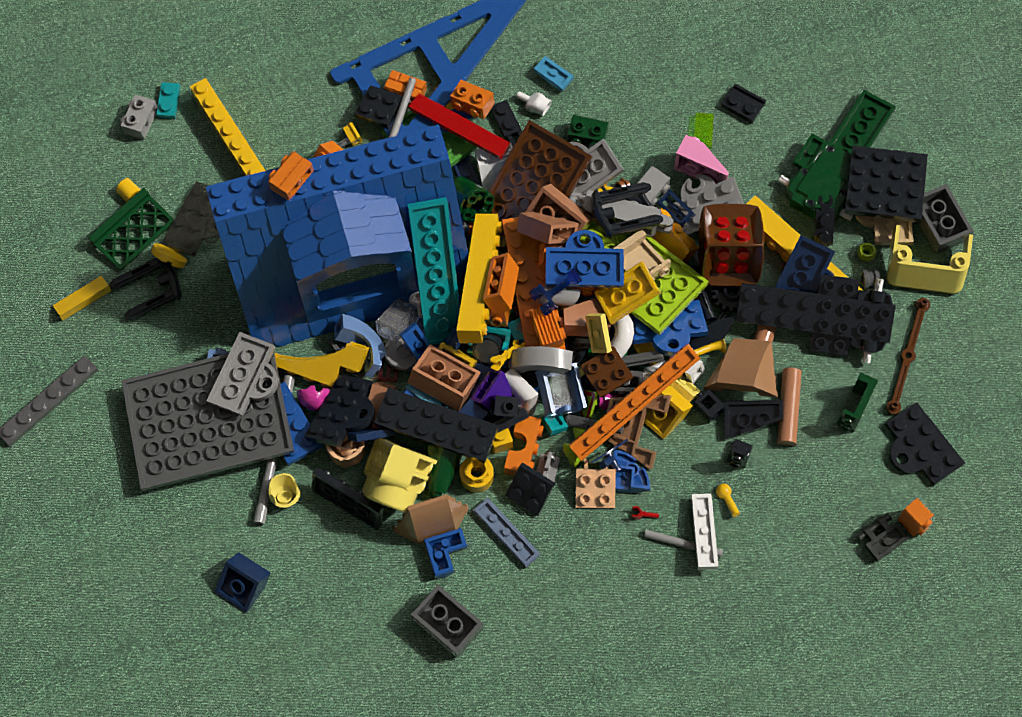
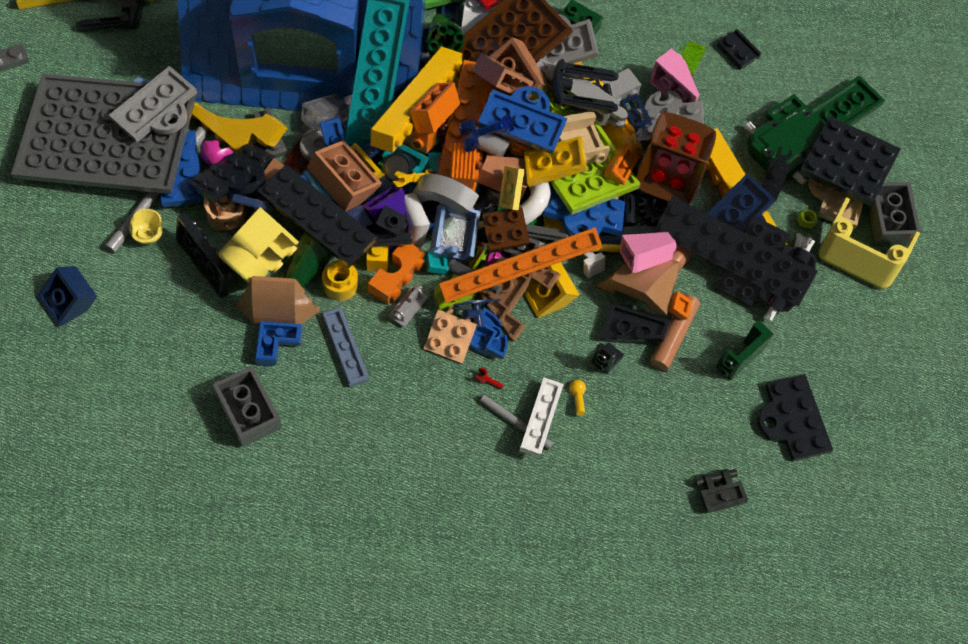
camera: 10 degrees right, 5 degrees down
(352, 329) = (283, 110): medium blue arch -> none
(530, 489) = (385, 312): black plate -> none
(684, 269) = (621, 164): none -> orange slope
(685, 388) = (577, 274): light yellow plate -> none
(708, 397) = (601, 304): black brick -> none
(738, 342) = (647, 250): none -> bright pink slope
(786, 383) = (680, 305): none -> orange plate
(916, 518) = (762, 482): orange brick -> none
(922, 306) = (780, 371): reddish brown piece -> none

